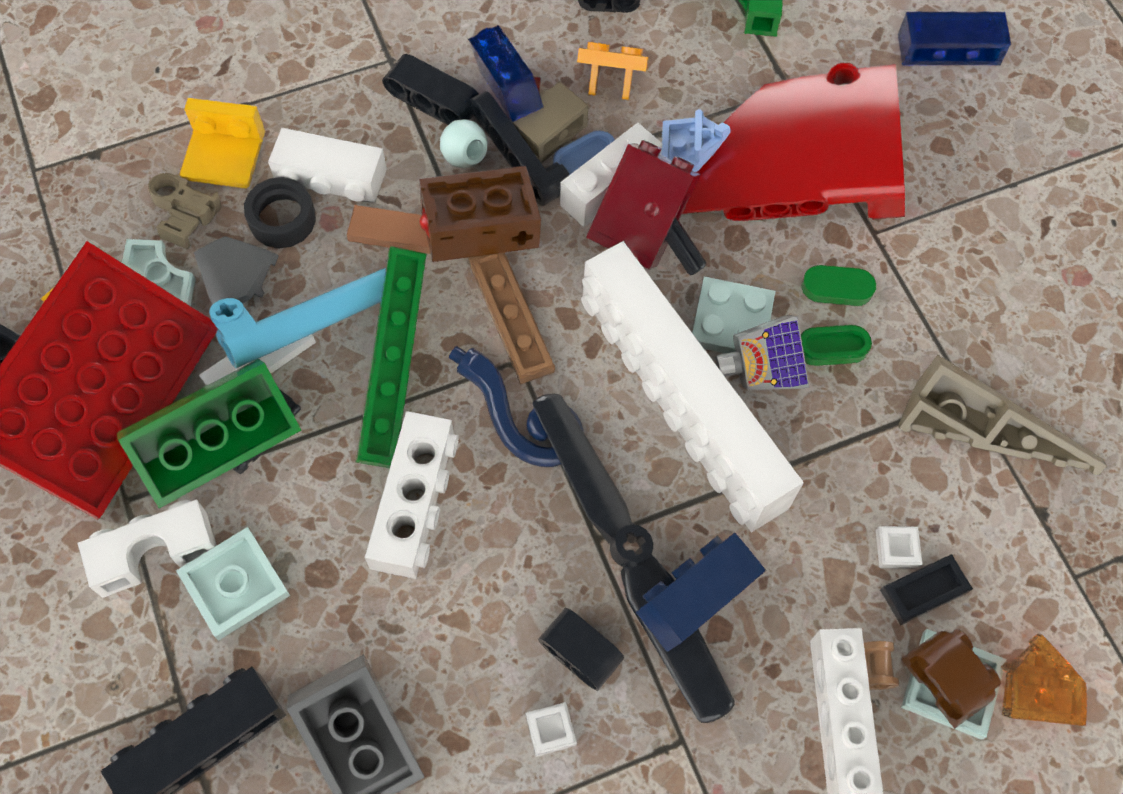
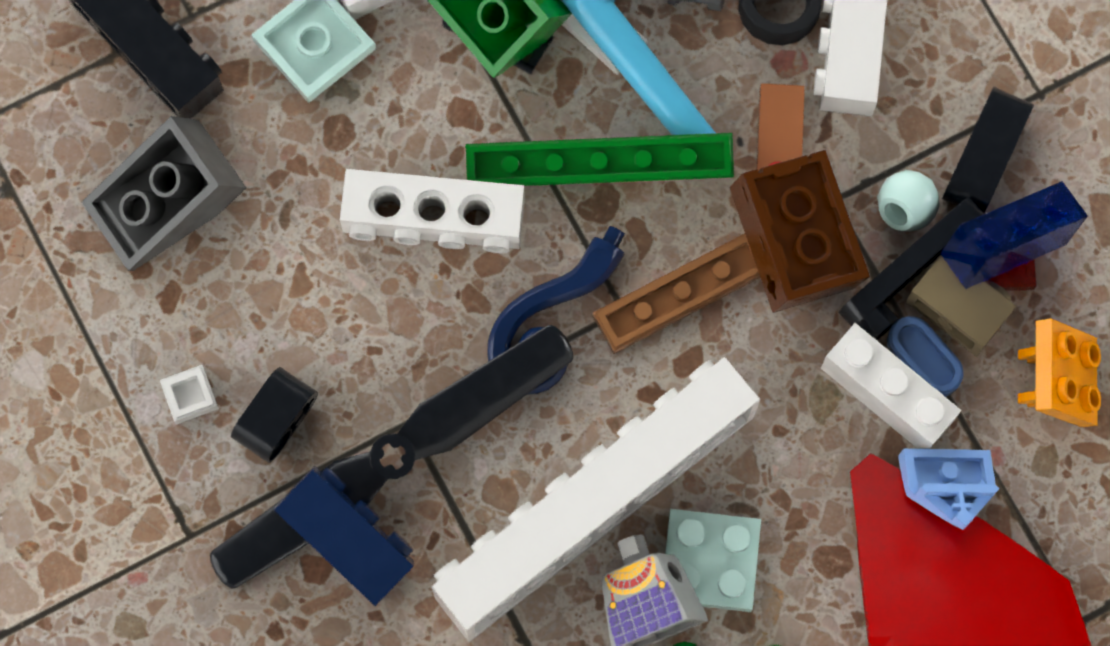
camera: 85 degrees right, 10 degrees up
(646, 207) = (829, 430): dark red piece -> none

